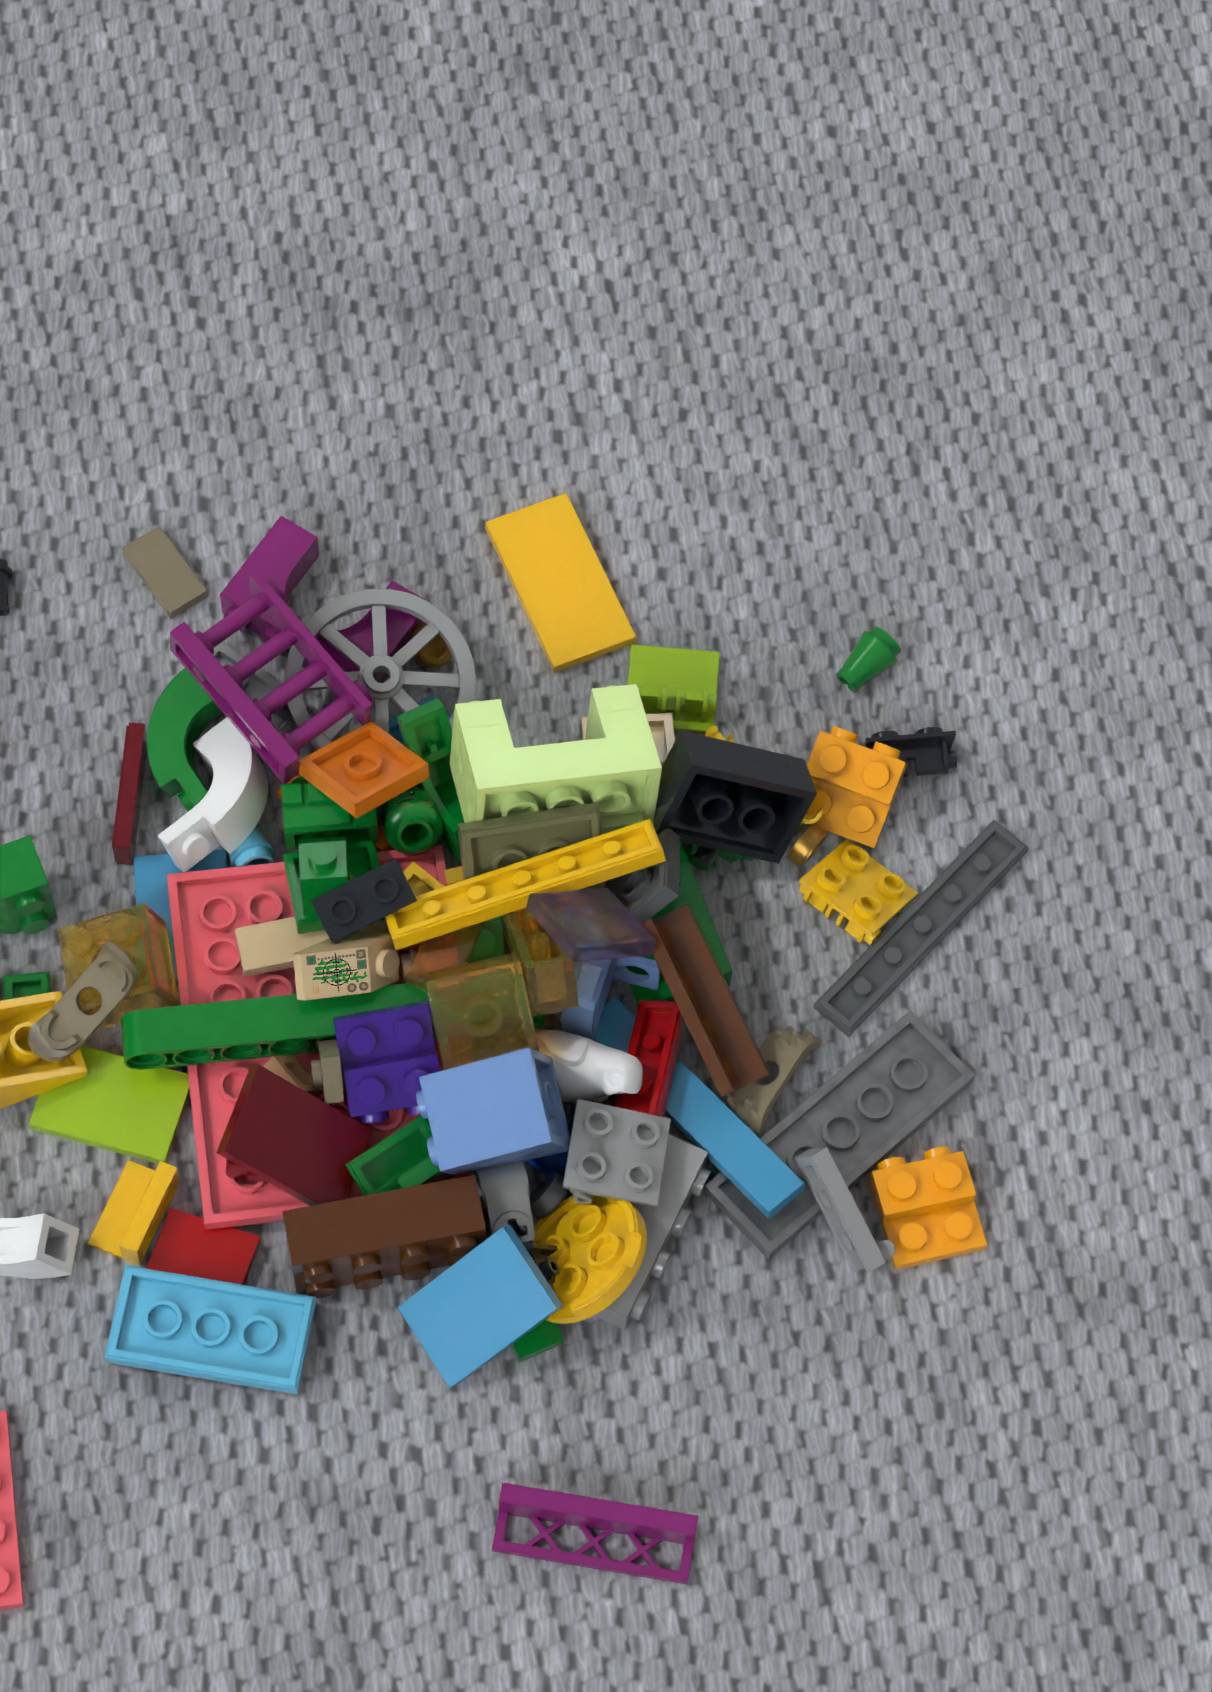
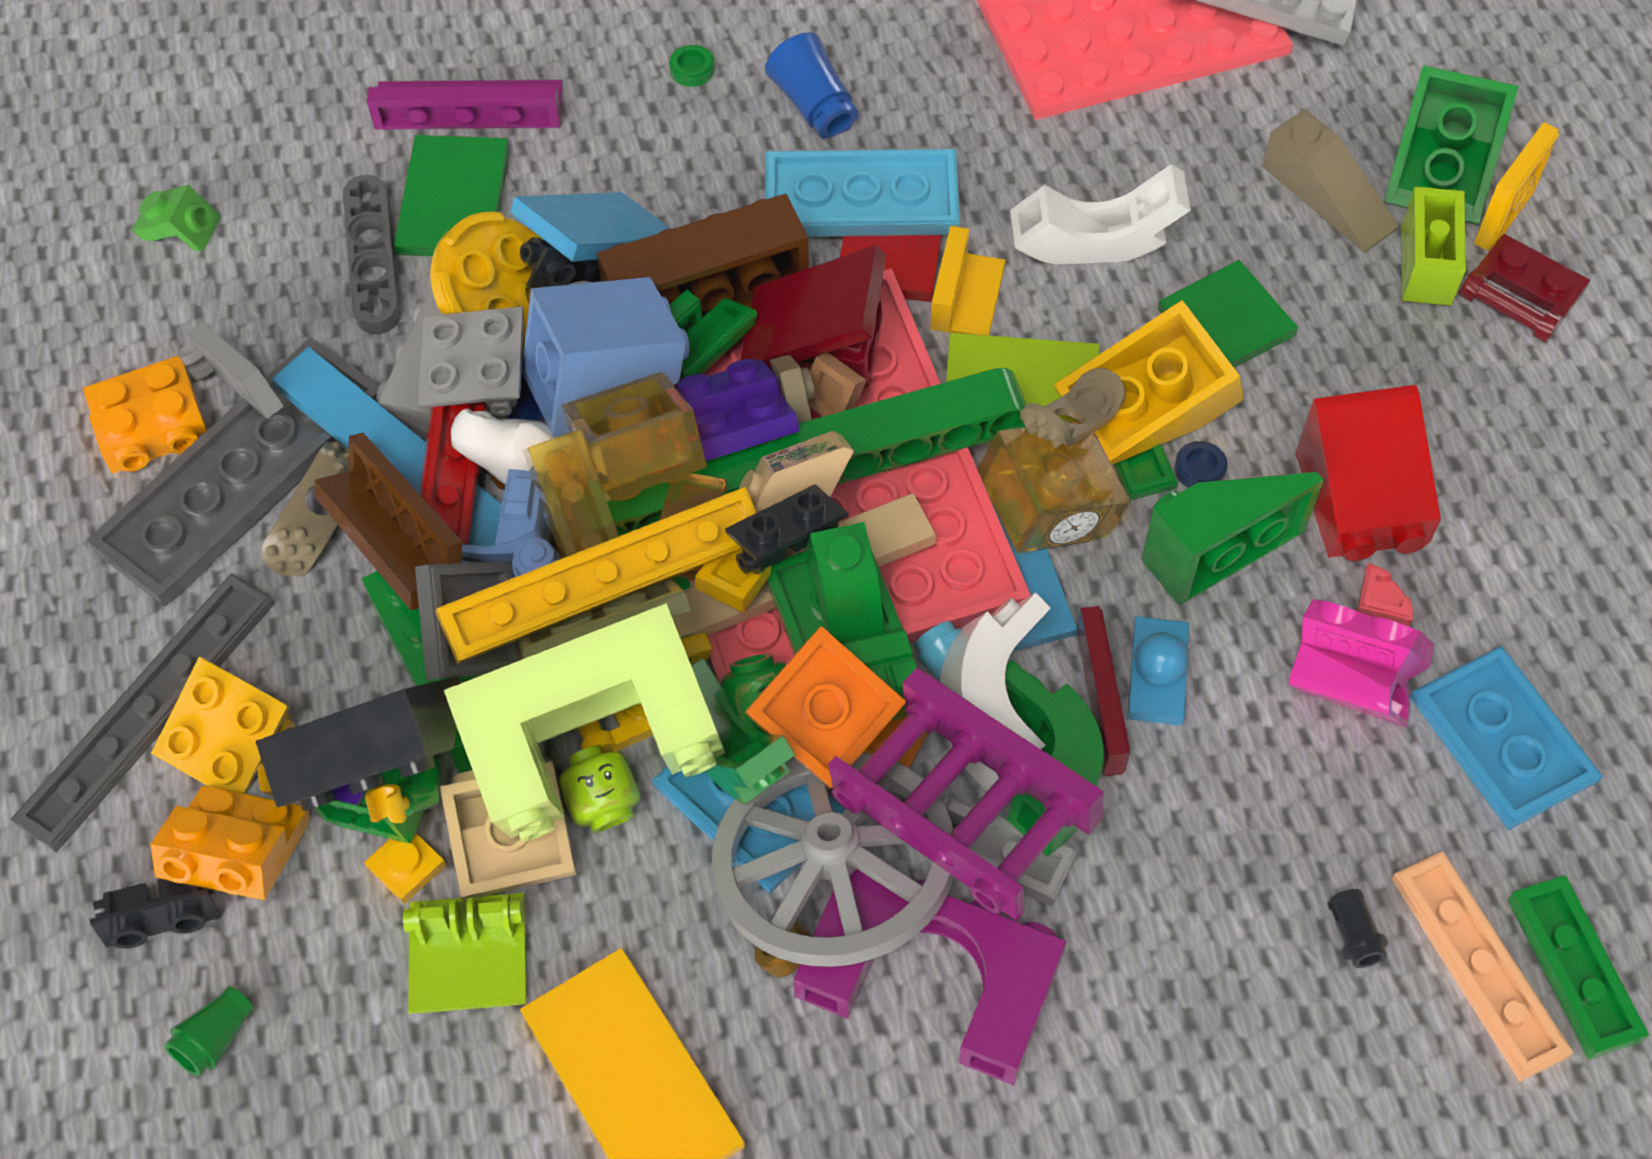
camera: 175 degrees right, 5 degrees down
(76, 813) = (1158, 670): none -> dark azure tile
(165, 572) = (1150, 995): dark tan tile -> none
(229, 1474) = (812, 85): none -> blue plant
(350, 1547) = (691, 65): none -> green tile
(590, 924) = (515, 514): tile -> none
(621, 1417) = (446, 184): none -> green tile
(708, 1357) = (372, 254): none -> dark grey beam
(902, 1431) = (179, 214): none -> bright green bracket

